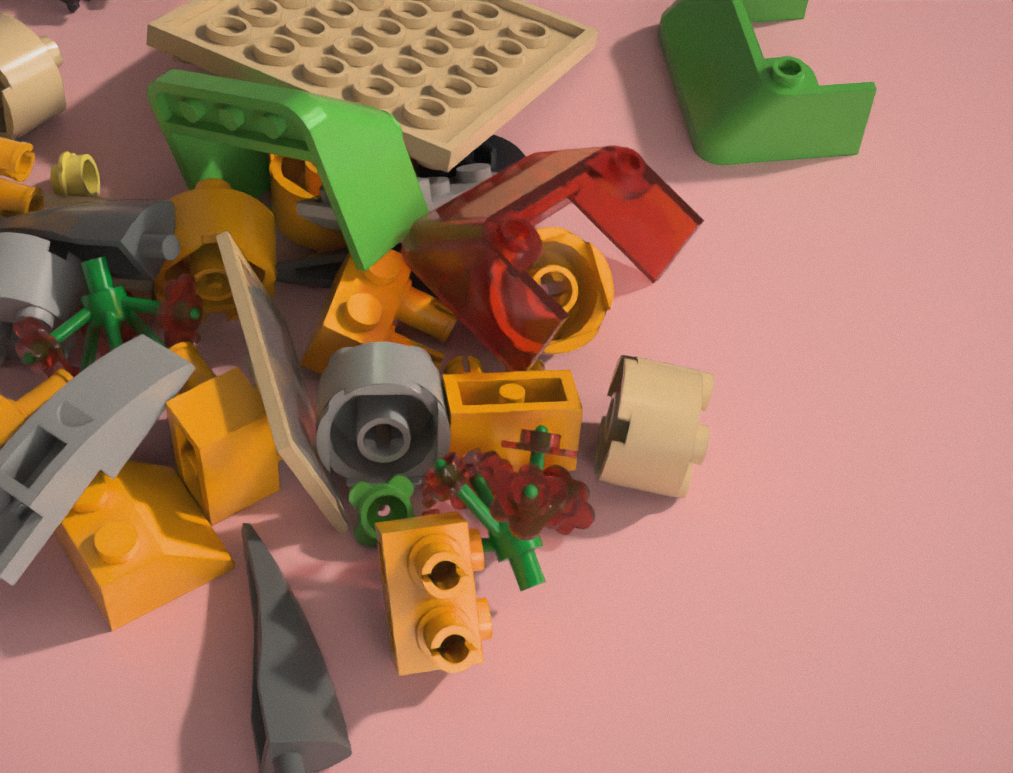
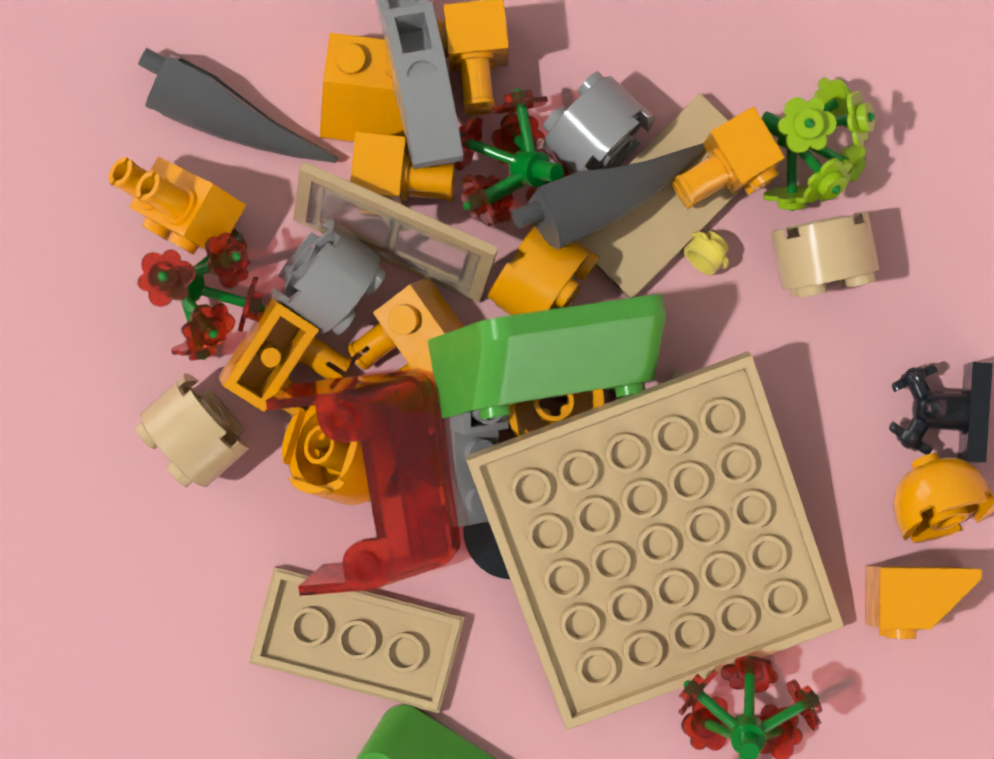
camera: 135 degrees right, 35 degrees up
(369, 498) = (277, 240): bright green plate -> none
(733, 248) = (357, 641): none -> tan tile

